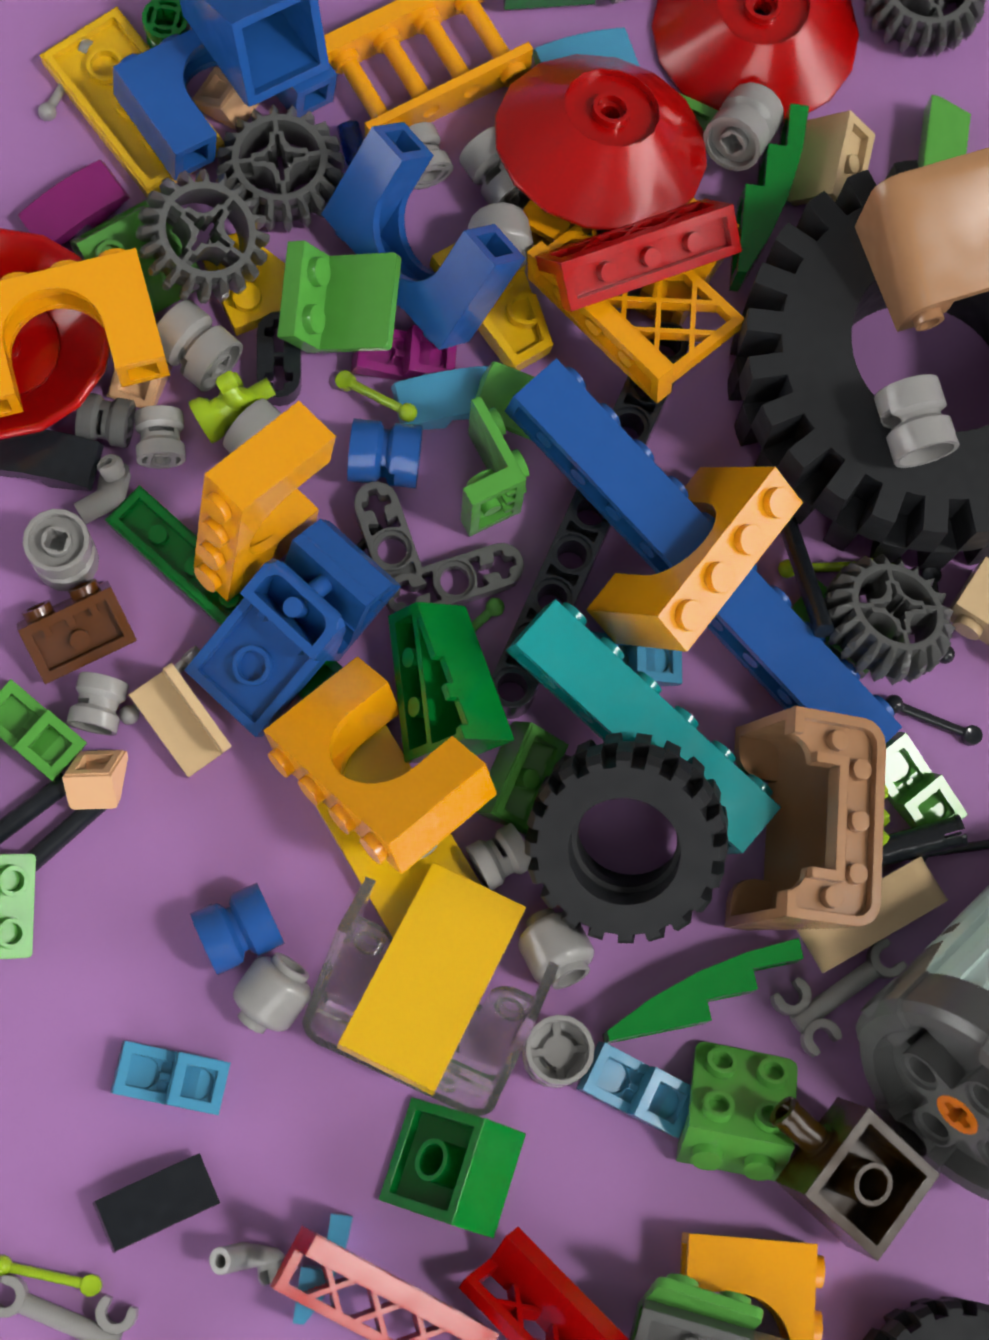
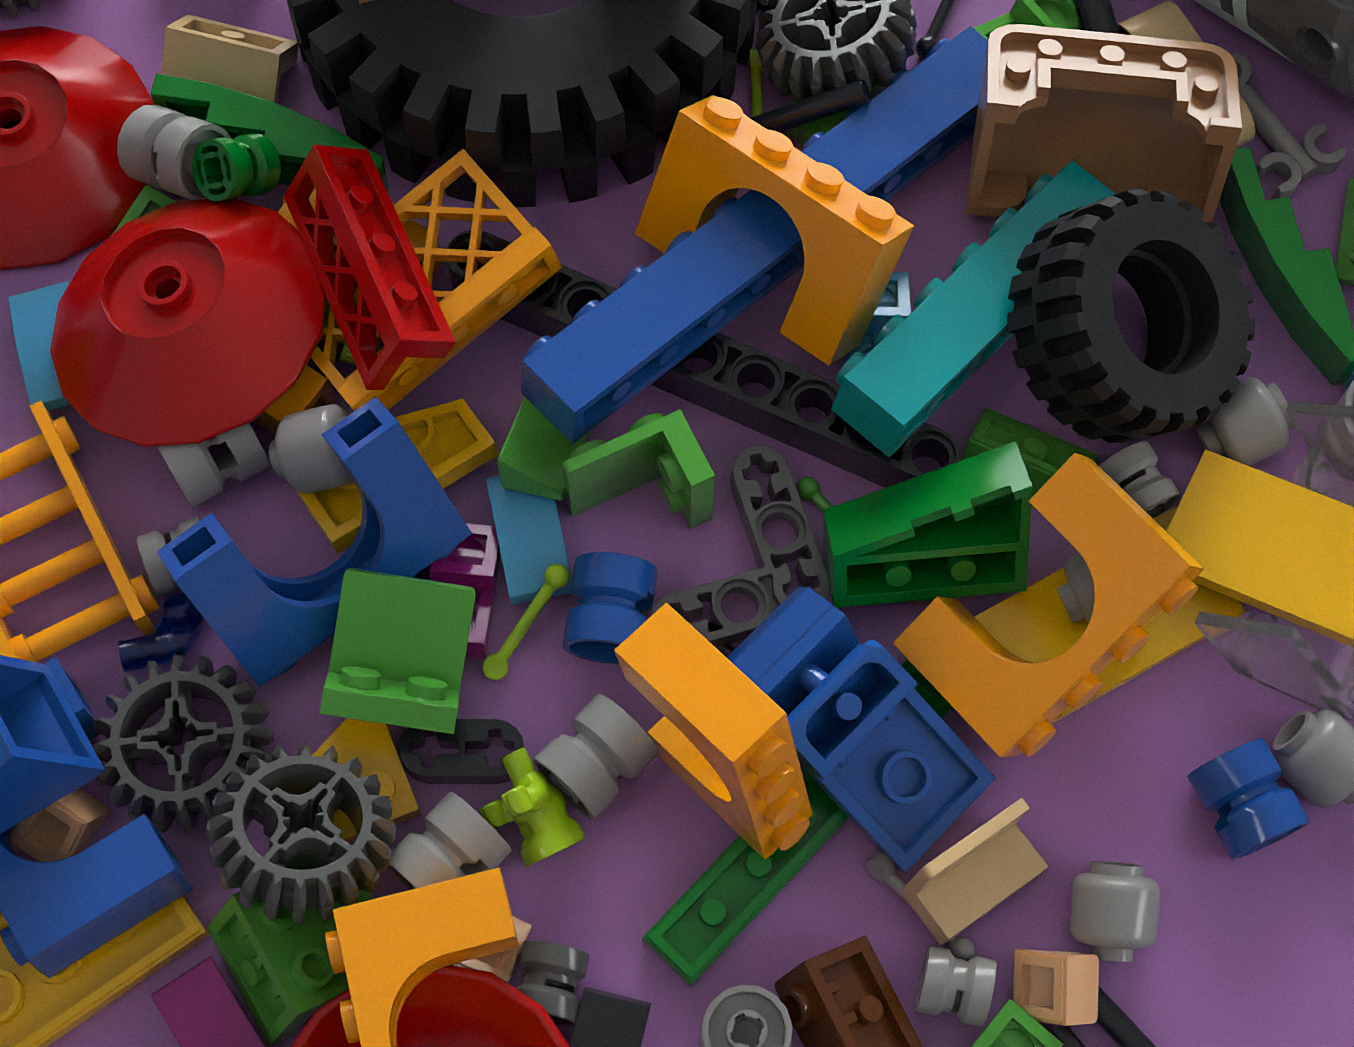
camera: 80 degrees left, 5 degrees down
(110, 492) = (648, 978): light grey arm -> none
(153, 823) = (1114, 909): none -> light grey head
(160, 436) = (592, 901): light grey wheel -> none
(728, 165) = (236, 167): none -> green wheel

